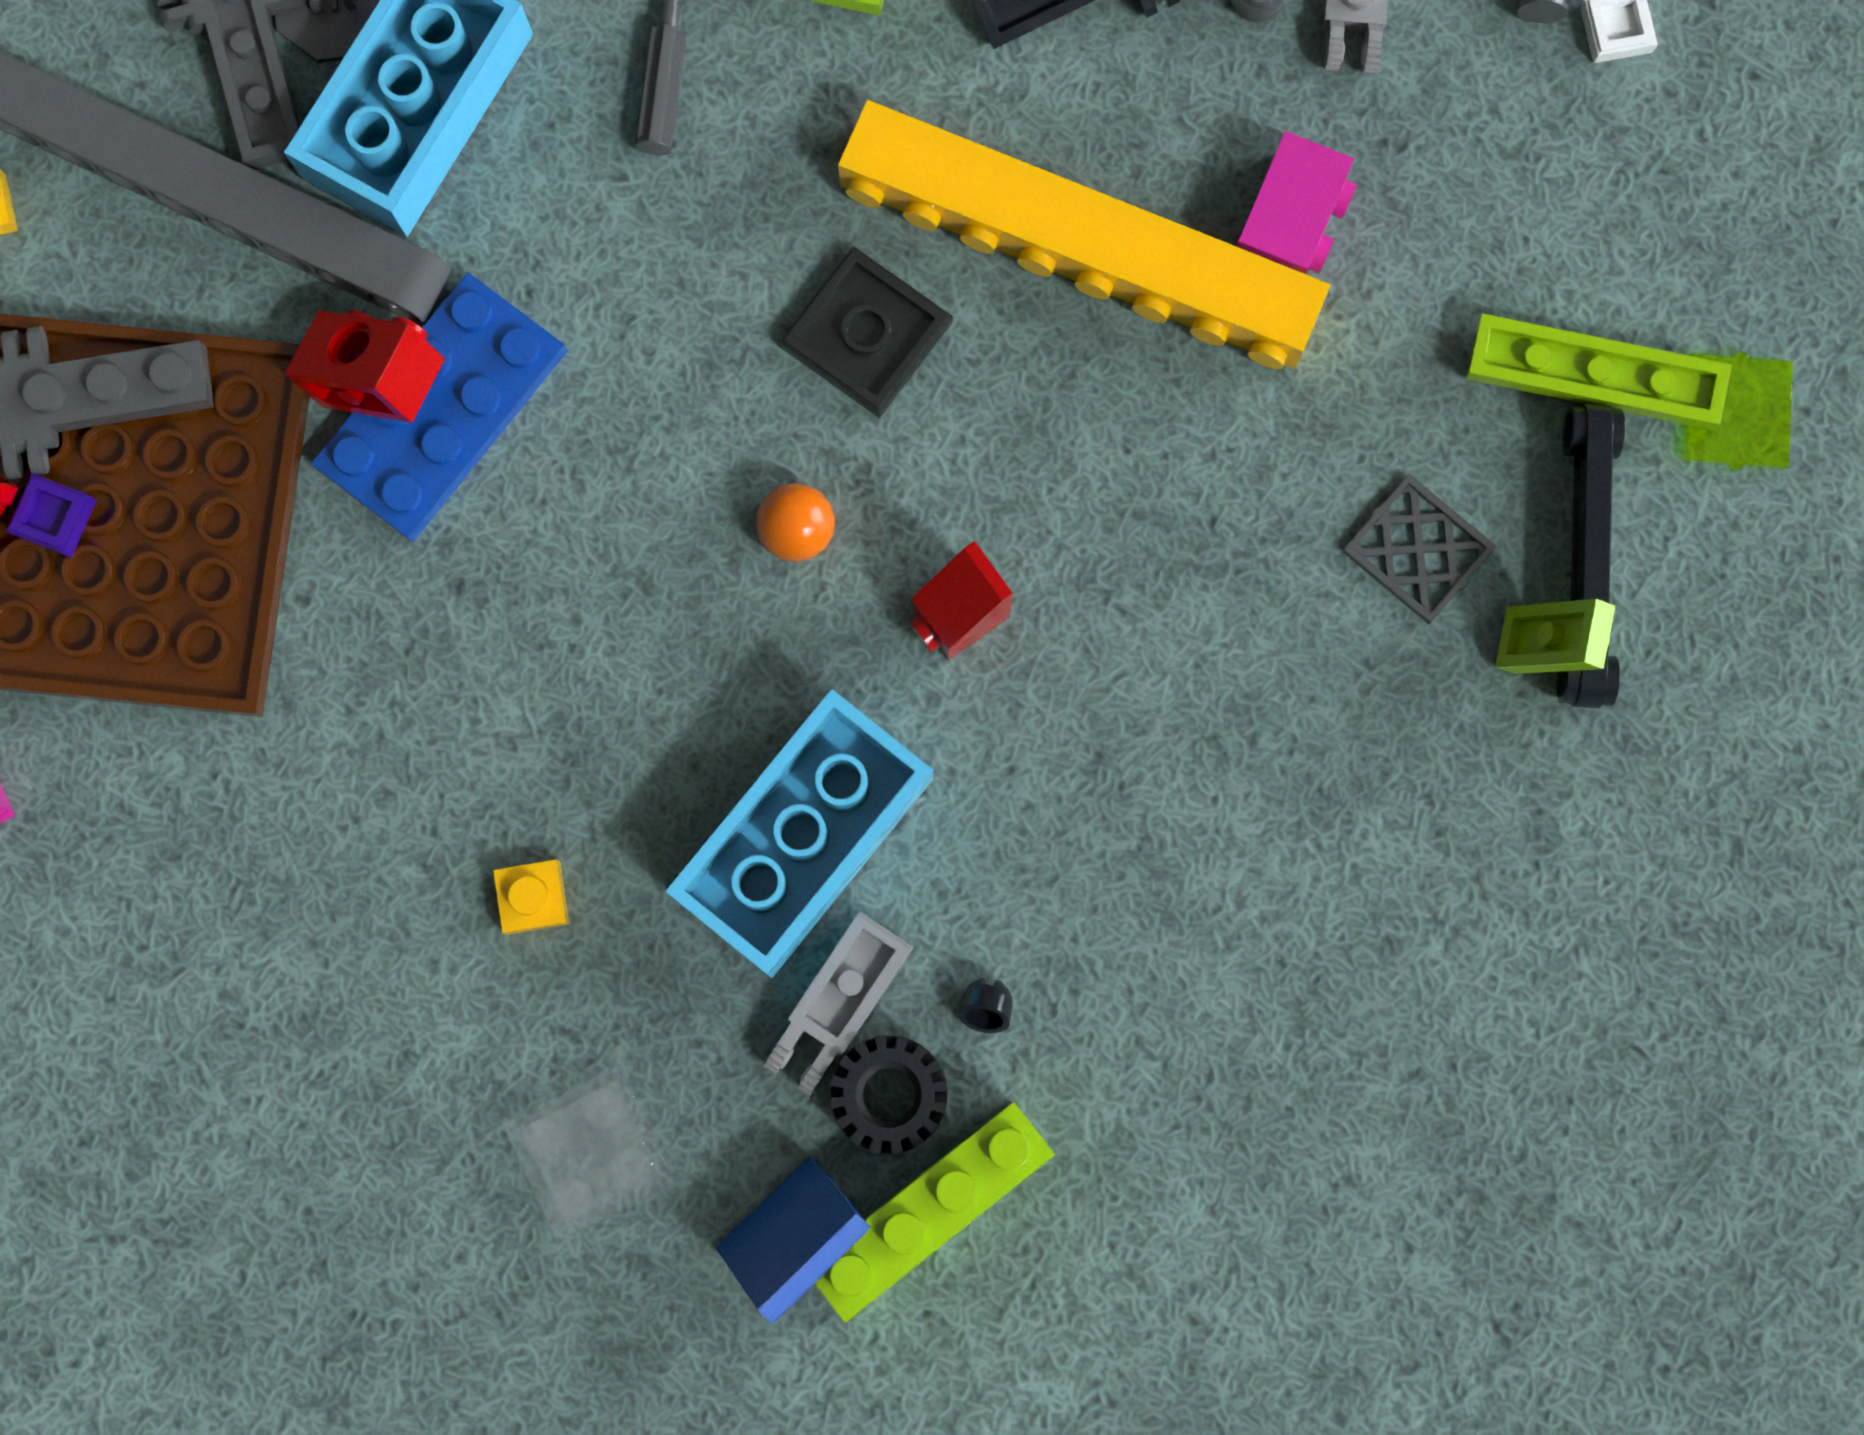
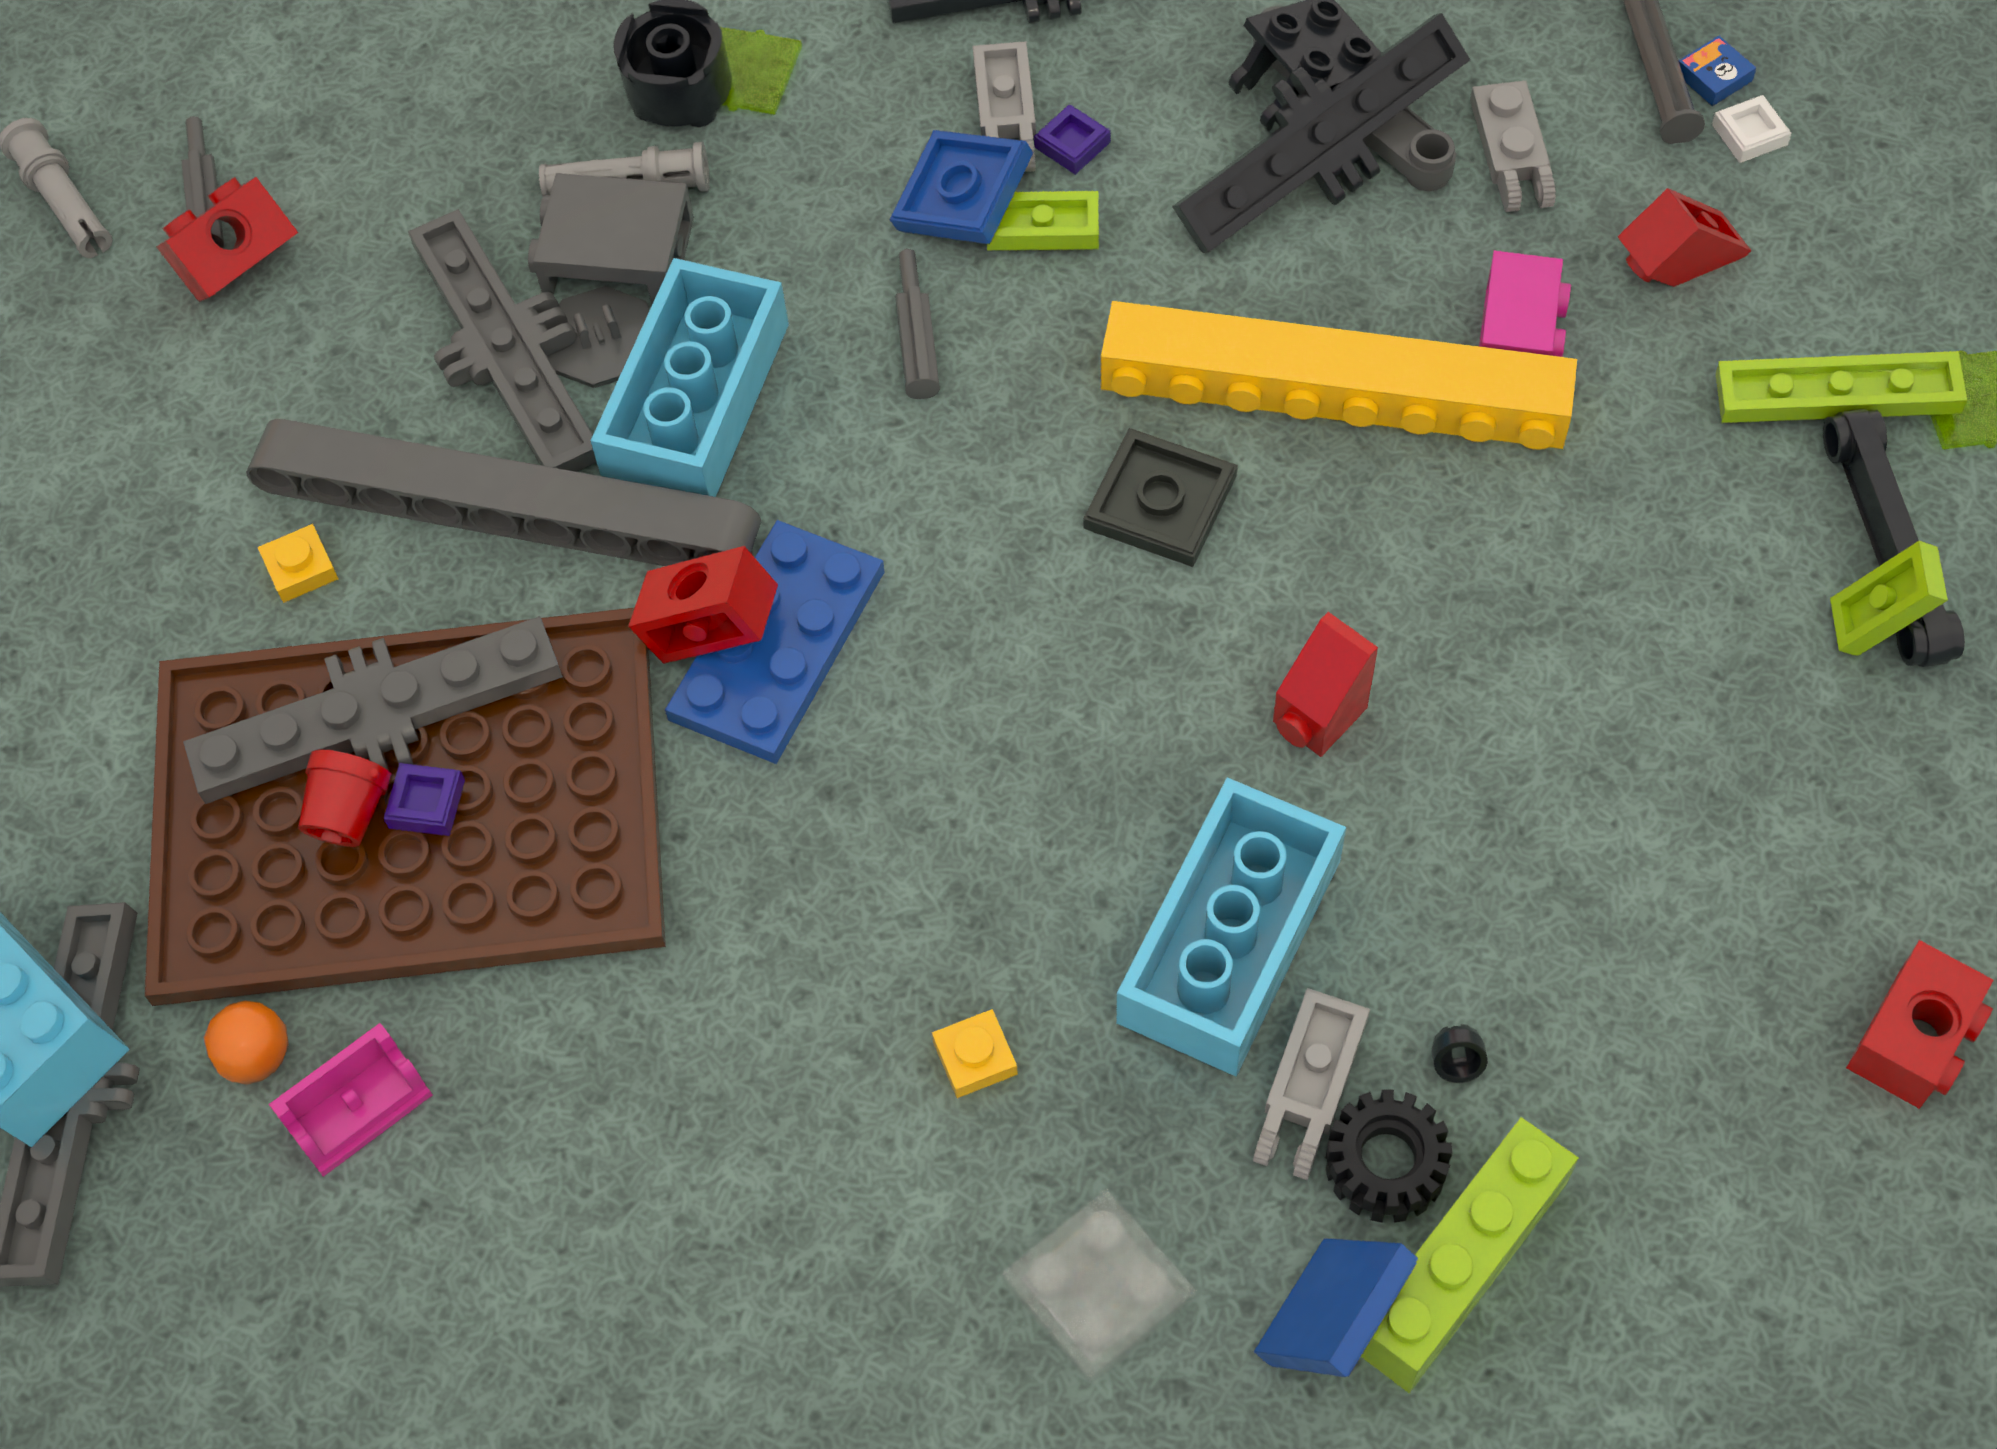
camera: 10 degrees left, 20 degrees down
(795, 522) = (1142, 662): orange piece -> none
(1394, 1096) = (1930, 990): none -> red brick
(1447, 515) = (1741, 536): dark grey window -> none
(1494, 155) = (1680, 240): none -> red slope

